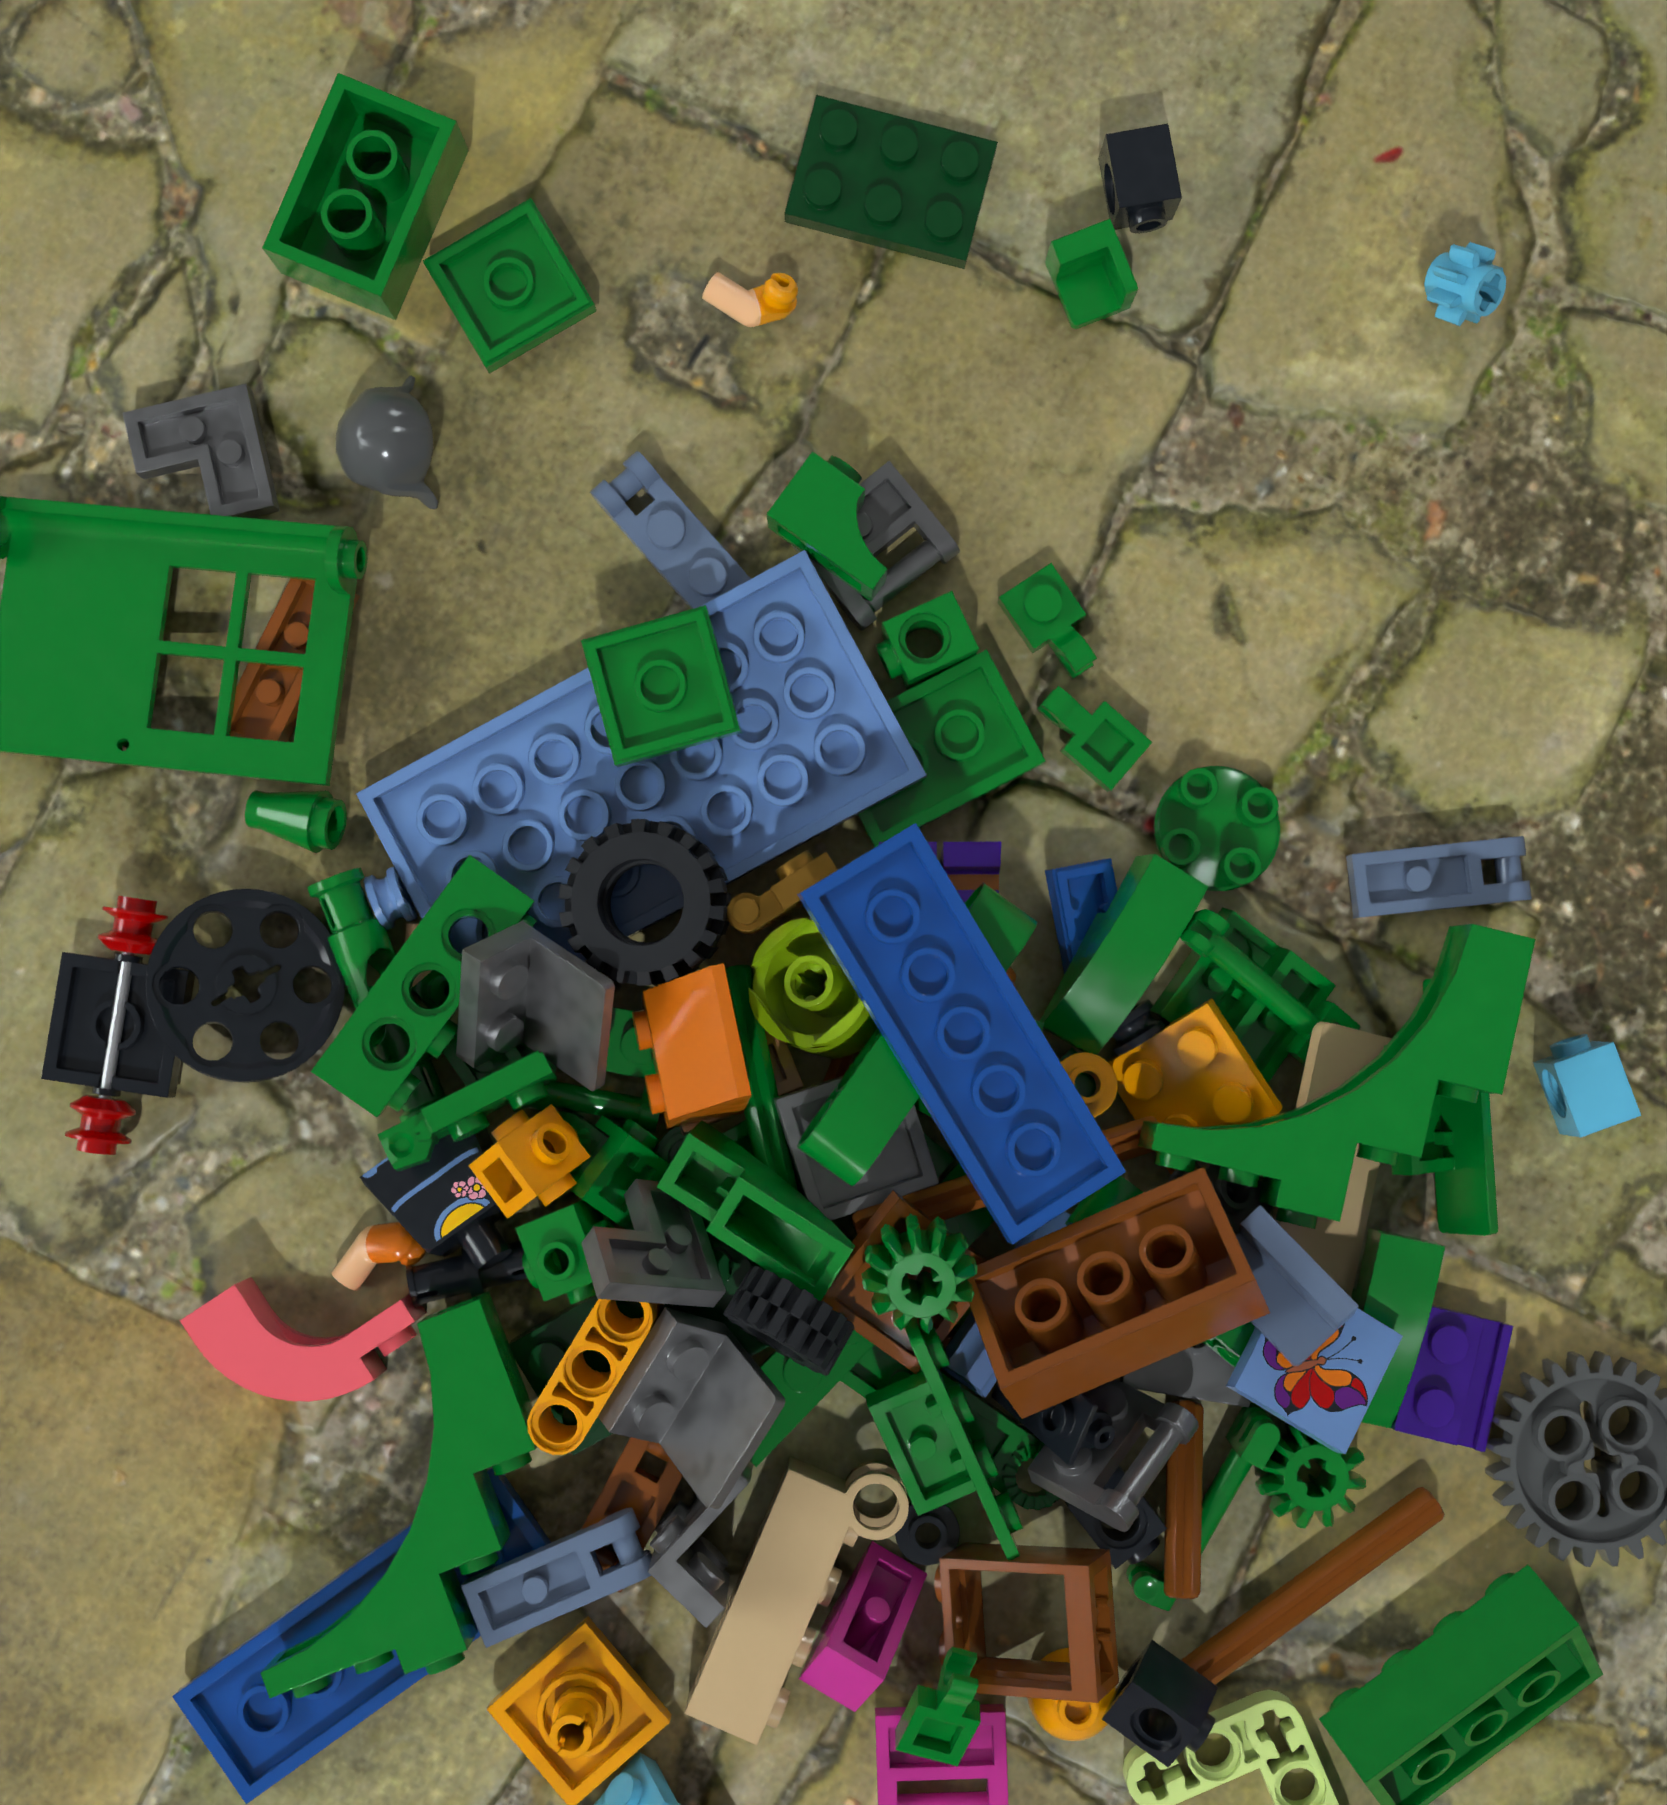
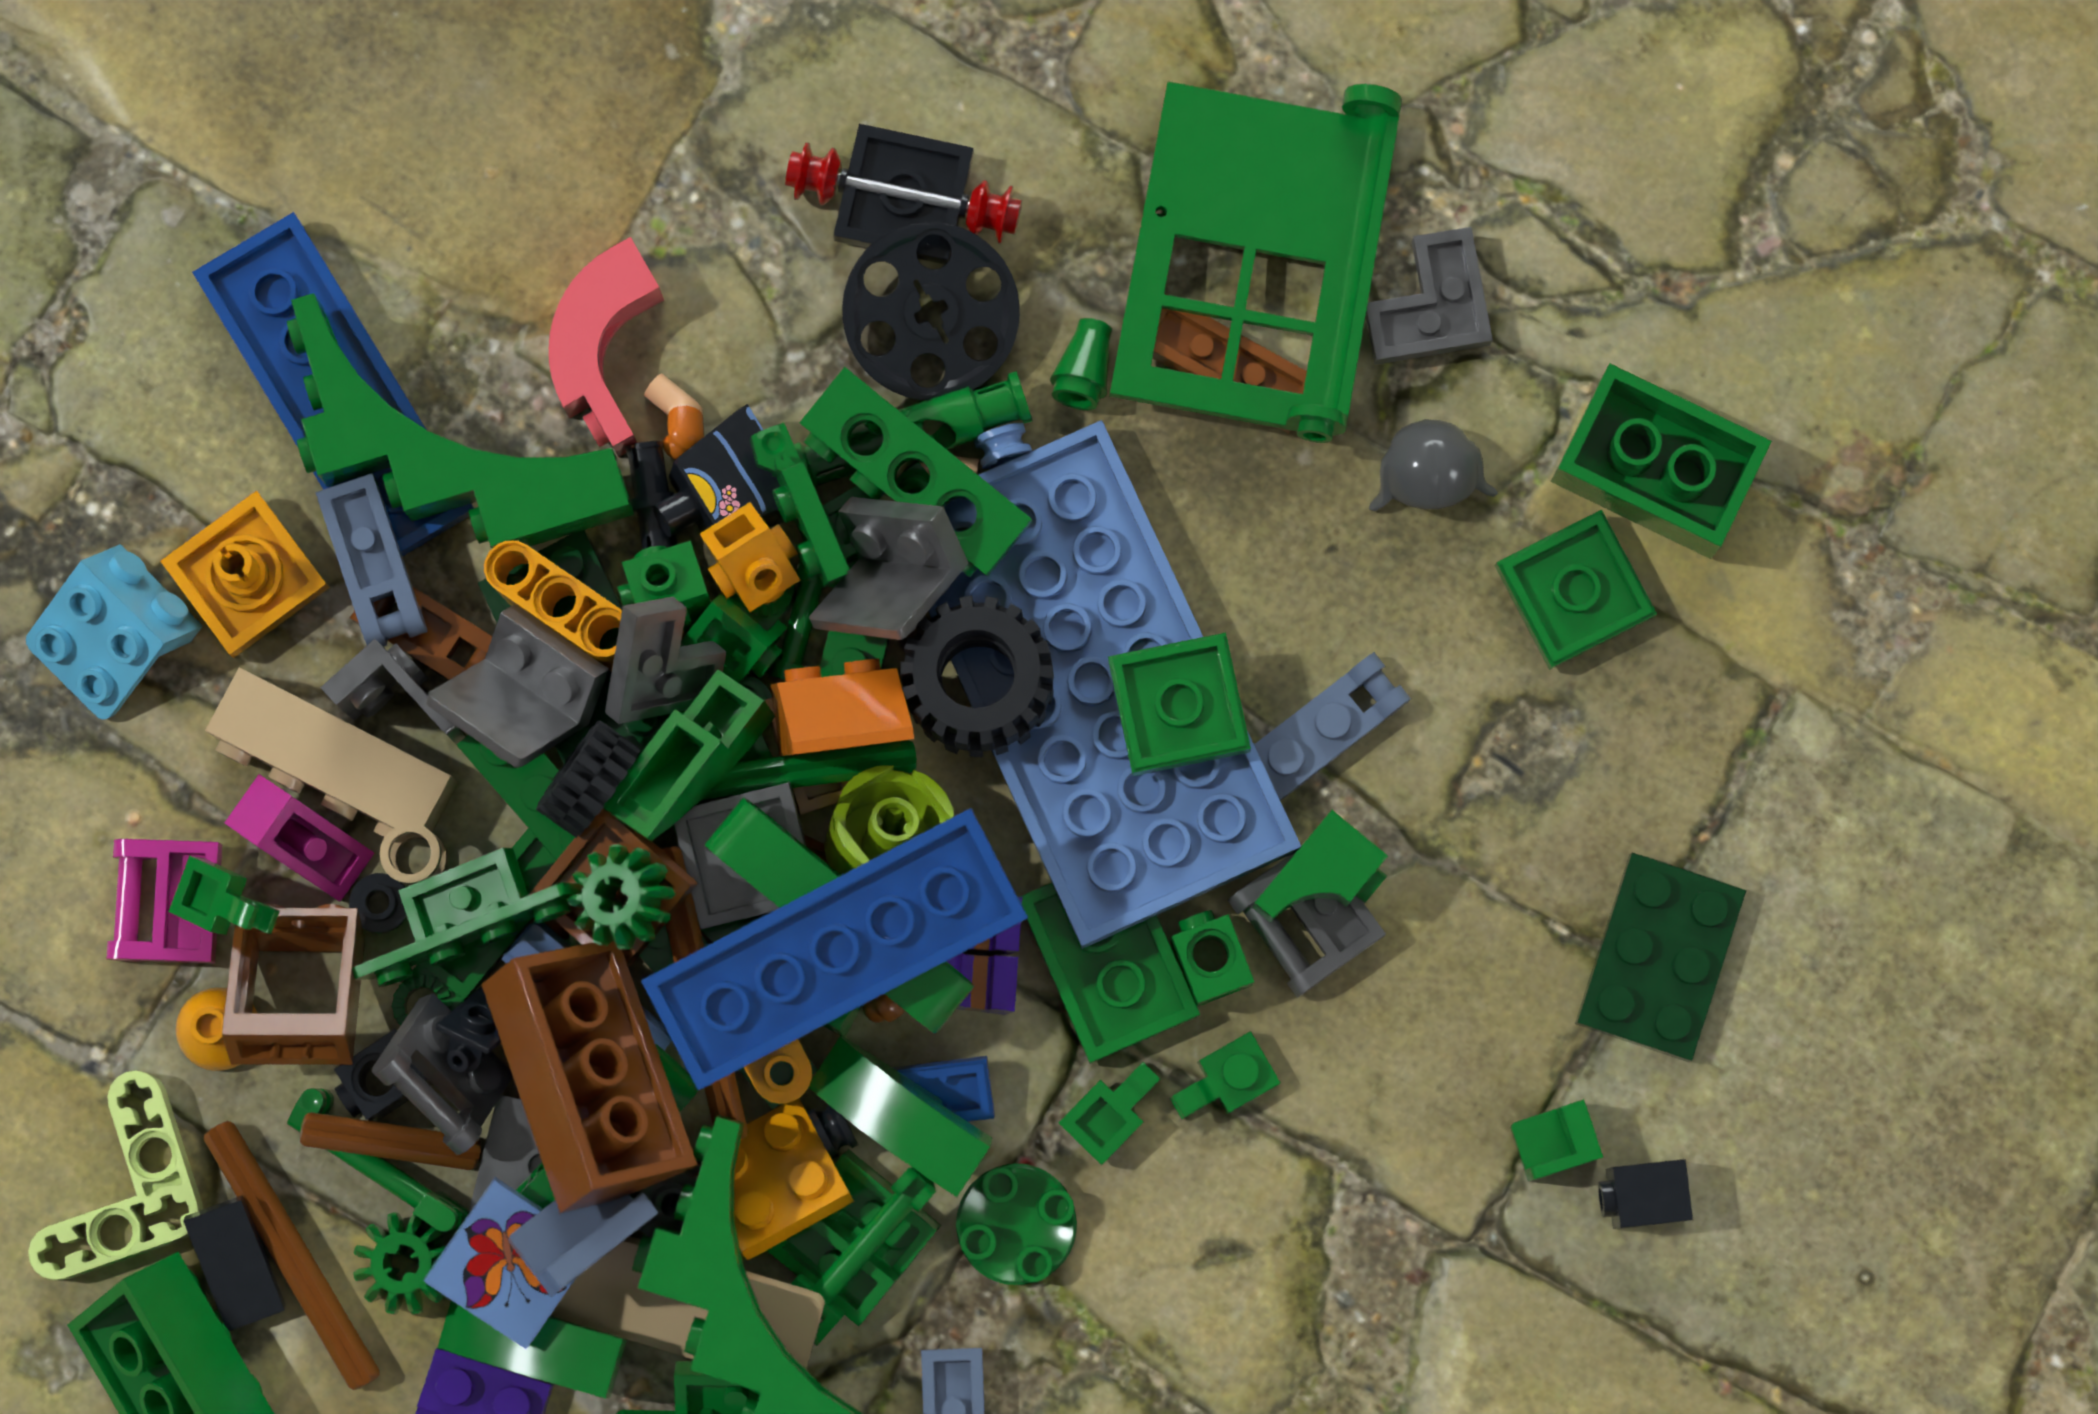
camera: 95 degrees right, 5 degrees down
(753, 913) = (963, 778): pearl gold plate -> none
(754, 306) = (1546, 820): arm -> none
(1162, 1705) = (205, 1104): black brick -> none
(1323, 1654) = (234, 1263): none -> black tile

